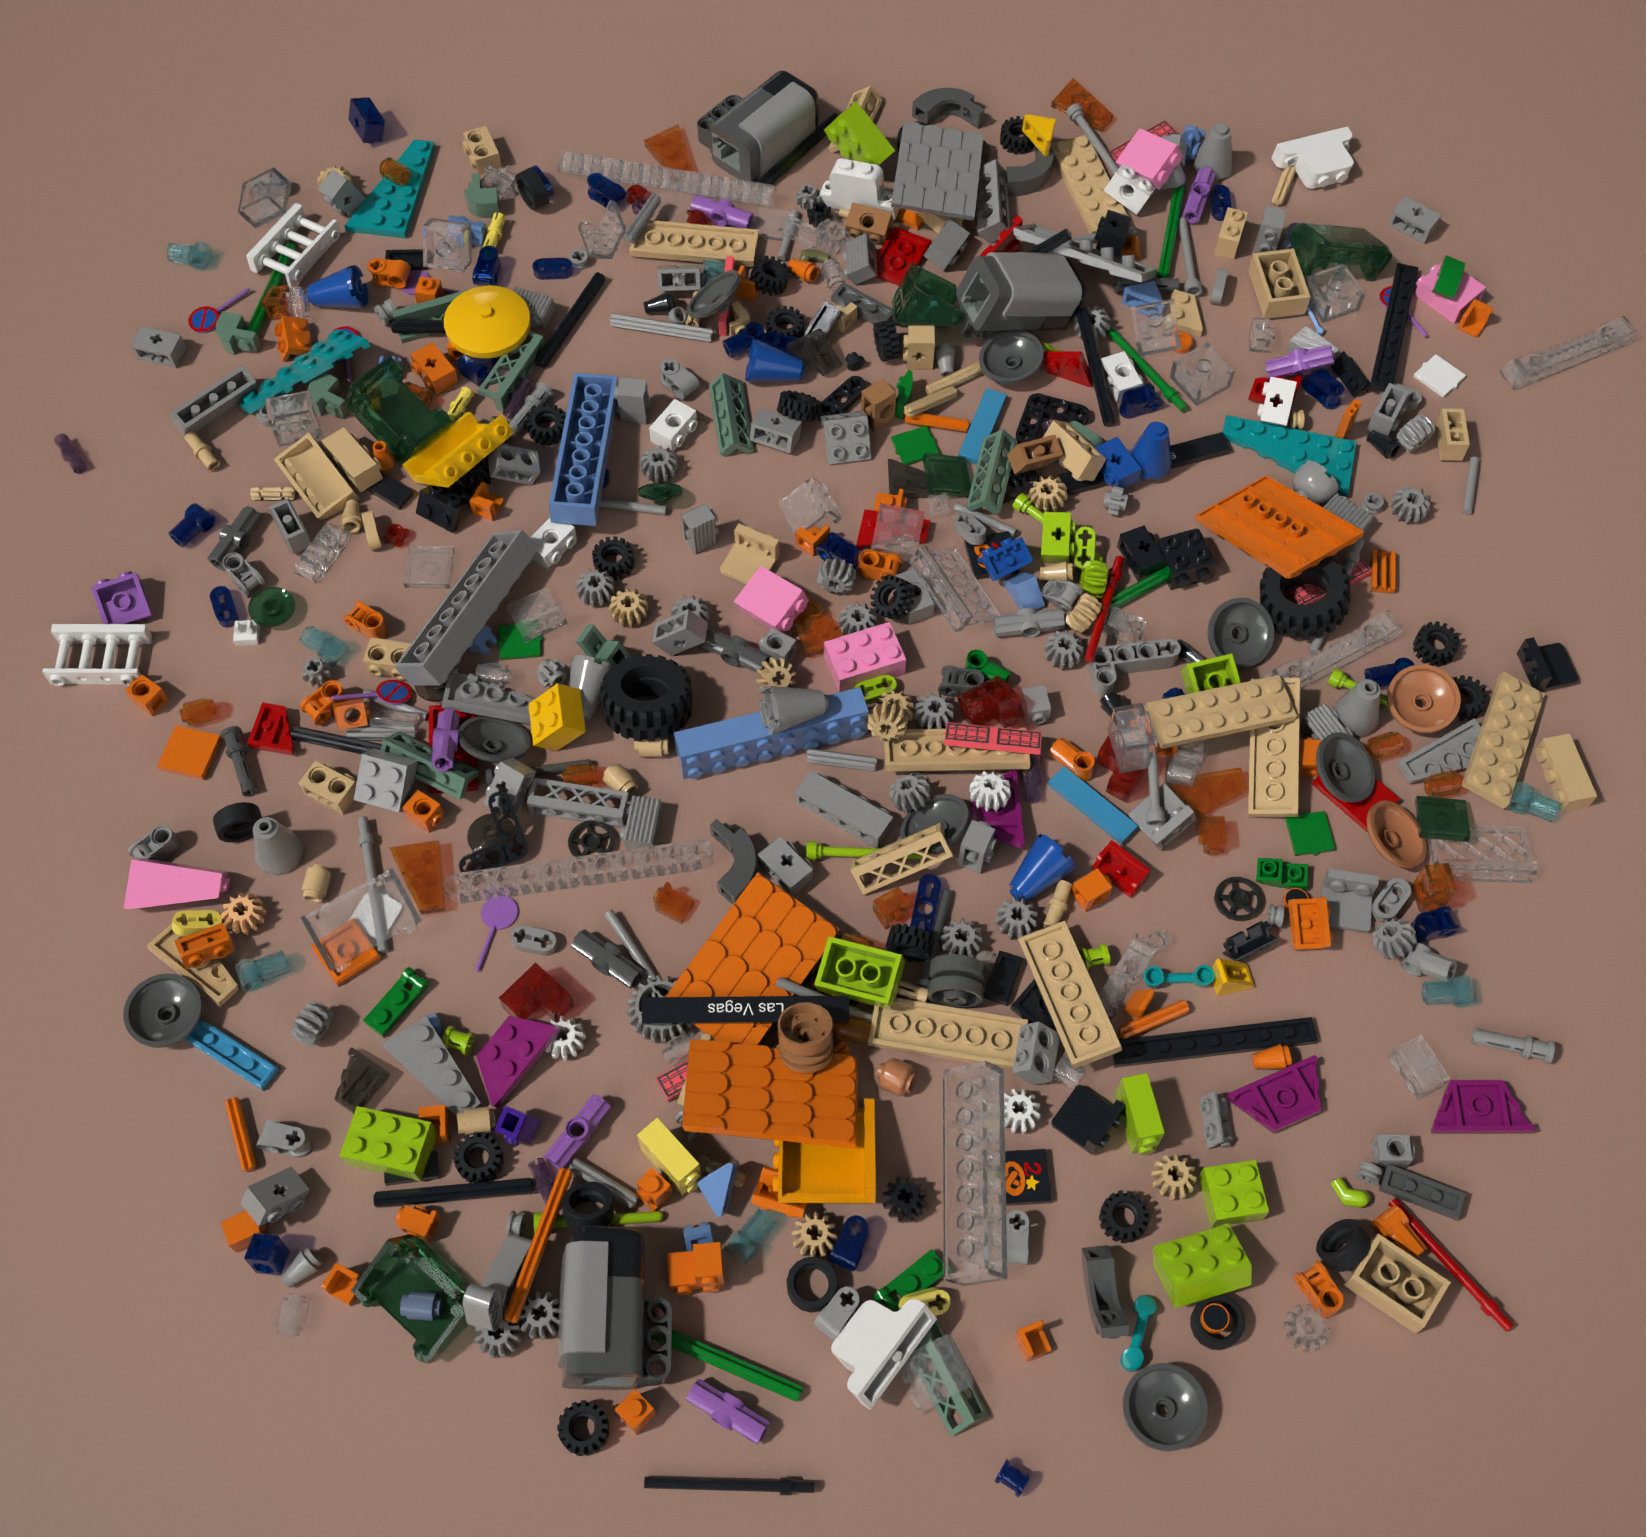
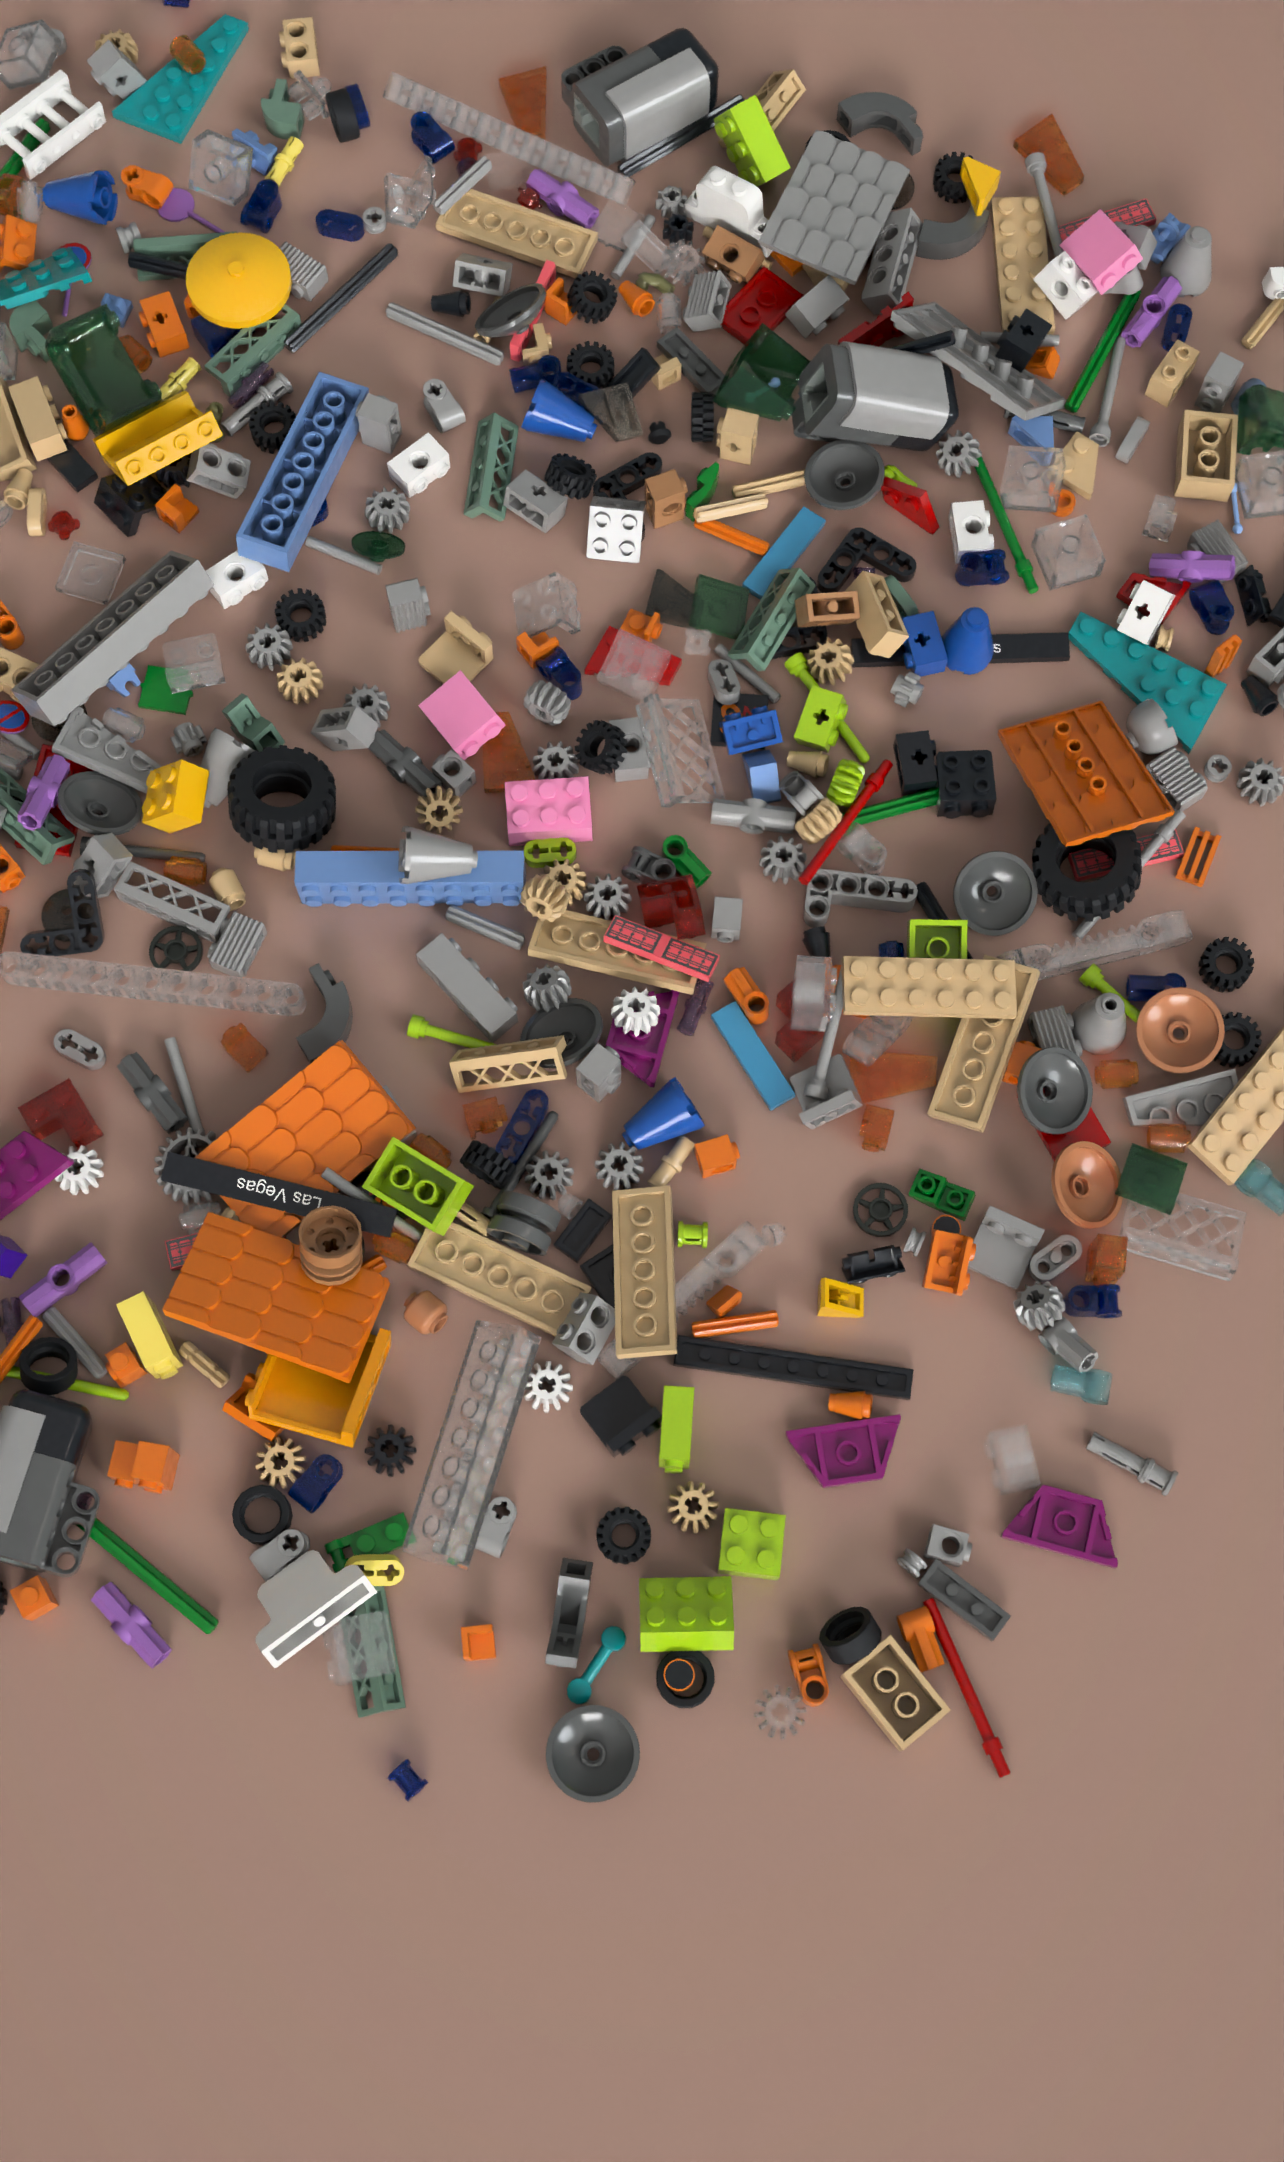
camera: 15 degrees right, 10 degrees up
(413, 257) = (174, 170): black tile -> none
(428, 289) = (184, 221): orange brick -> none
(497, 915) = (50, 1009): medium lavender piece -> none
(681, 315) = (468, 327): light grey hinge -> none
(697, 1235) = (156, 1430): medium blue tile -> none
(711, 268) = (525, 272): clear light blue piece -> none
(718, 1187) = (193, 1383): medium blue slope -> none
(745, 1242) = (204, 1450): clear light blue piece -> none
(784, 1485) = (167, 1719): black bar -> none
(788, 878) = (384, 1053): light grey brick -> none
(880, 565) = (609, 702): orange piece -> none
(914, 444) = (695, 558): green piece -> none
(945, 358) = (768, 453): light grey cone -> none
(1027, 1177) = (530, 1461): tile -> none
(1079, 546) = (844, 736): lime beam -> none
(1095, 367) = (941, 511): black axle -> none
(1121, 868) = (757, 1140): red hinge -> none
(1201, 977) = (806, 1289): teal bar -> none
(1213, 1109) = (764, 1443): light grey hinge -> none
(1310, 833) = (992, 1155): green piece -> none
(1348, 1196) = (882, 1583): lime arm -> none

